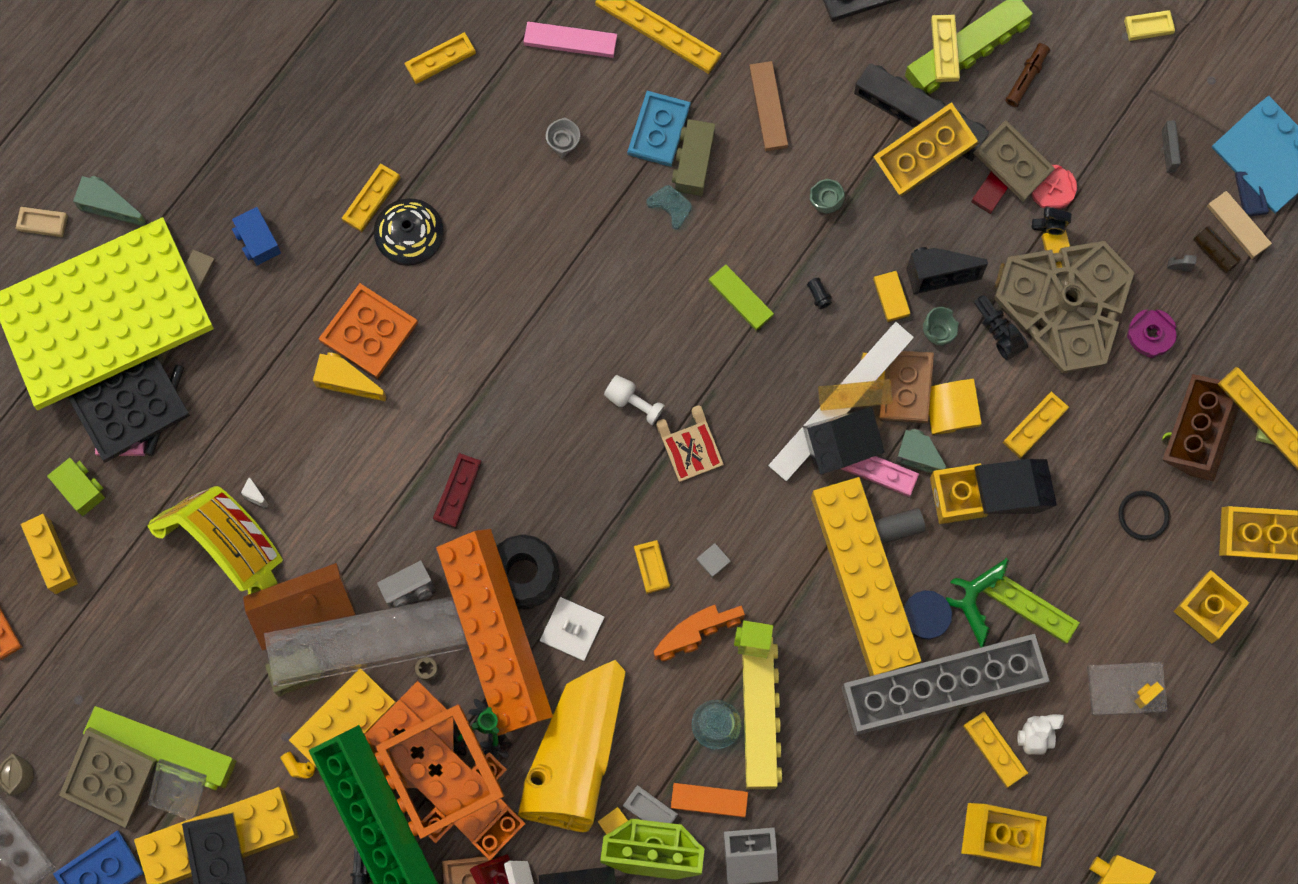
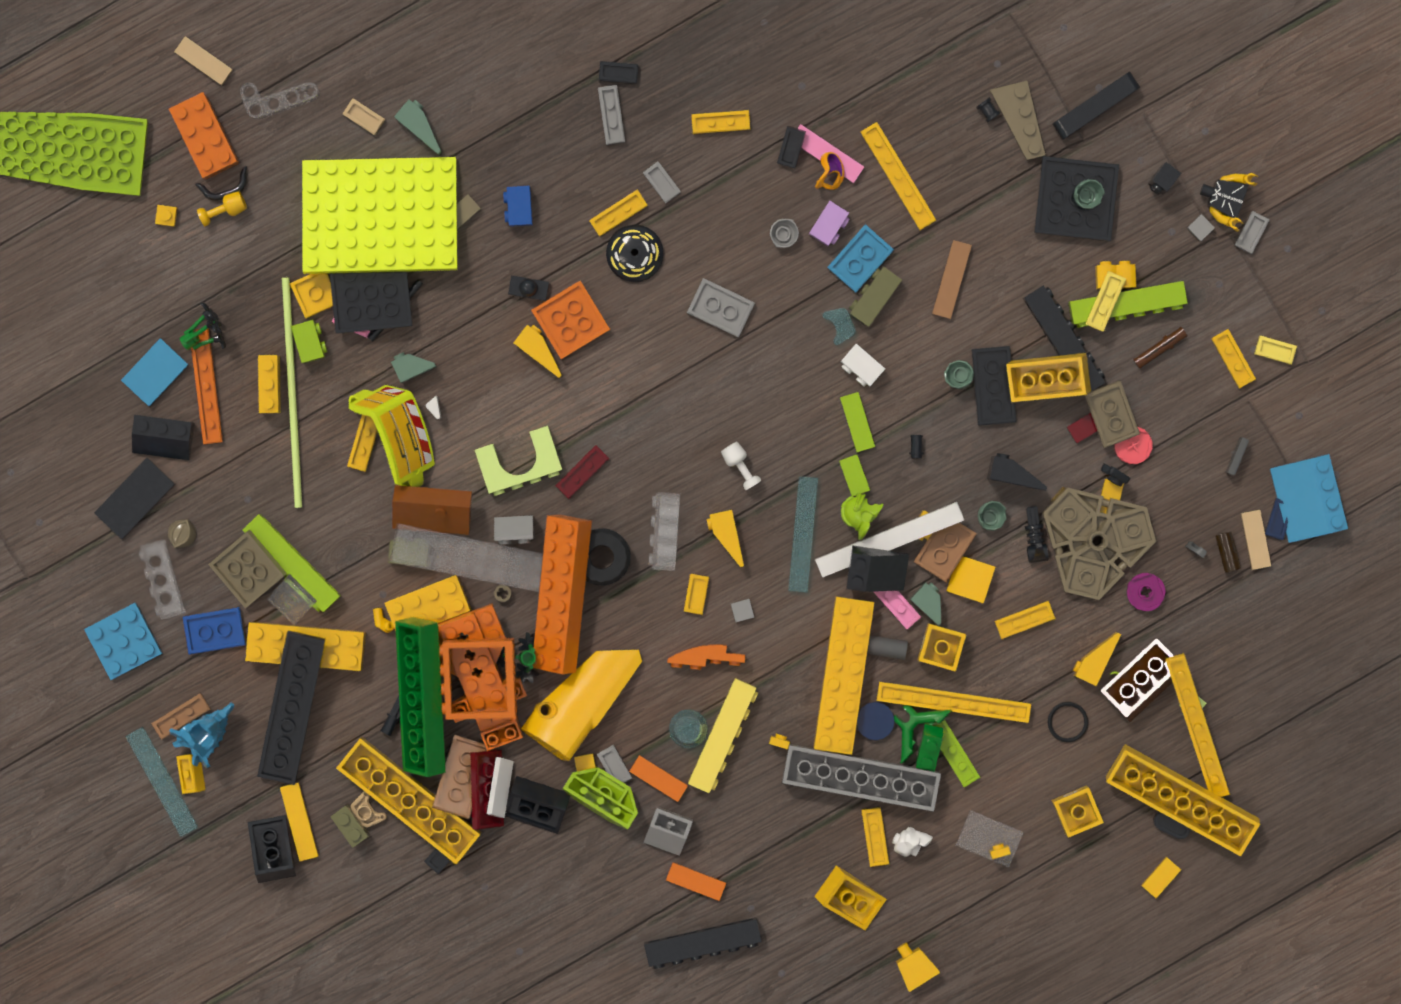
camera: 25 degrees right, 15 degrees up
(61, 432) = (313, 293): none -> yellow tile
(82, 556) = (292, 392): none -> yellowish green piece
(189, 571) = (363, 444): none -> yellow tile
(208, 460) = (410, 366): none -> sand green slope
(305, 56) = (618, 72): none -> black tile
(305, 318) = (528, 288): none -> black tile
(317, 102) = (611, 115): none -> light grey tile
(364, 539) = (498, 479): none -> yellowish green arch
(404, 146) = (661, 182): none -> light grey tile
(528, 47) = (791, 147): none -> black tile
(530, 245) = (720, 307): none -> light grey tile
(572, 629) = (618, 612): white piece -> none
(582, 41) = (831, 163): none -> light orange piece
(583, 508) = (665, 532): none -> clear brick
(607, 105) = (828, 224): none -> lavender brick
(652, 481) = (725, 530): none -> yellow slope
(691, 449) = (766, 520): flag -> none
(716, 234) = (862, 366): none -> white brick
(741, 445) = (803, 534): none -> clear light blue tile
(754, 639) = (740, 687): lime brick -> none
(766, 355) = (854, 475): none -> lime tile
(793, 389) = (858, 513): none -> lime helmet
(829, 688) = (780, 741): none -> yellow plate
(855, 395) = (901, 541): clear yellow tile -> none
(870, 194) = (992, 386): none -> black tile
(891, 296) = (969, 473): yellow tile -> none
(923, 21) = (1124, 269): none -> yellow brick
(1005, 612) = (929, 747): none -> green brick
(1013, 548) = (955, 701): none -> yellow plate
(1015, 487) = (982, 662): black slope -> none
(1110, 53) = (1233, 358): none -> yellow tile
(1139, 436) = (1093, 664): none -> yellow slope

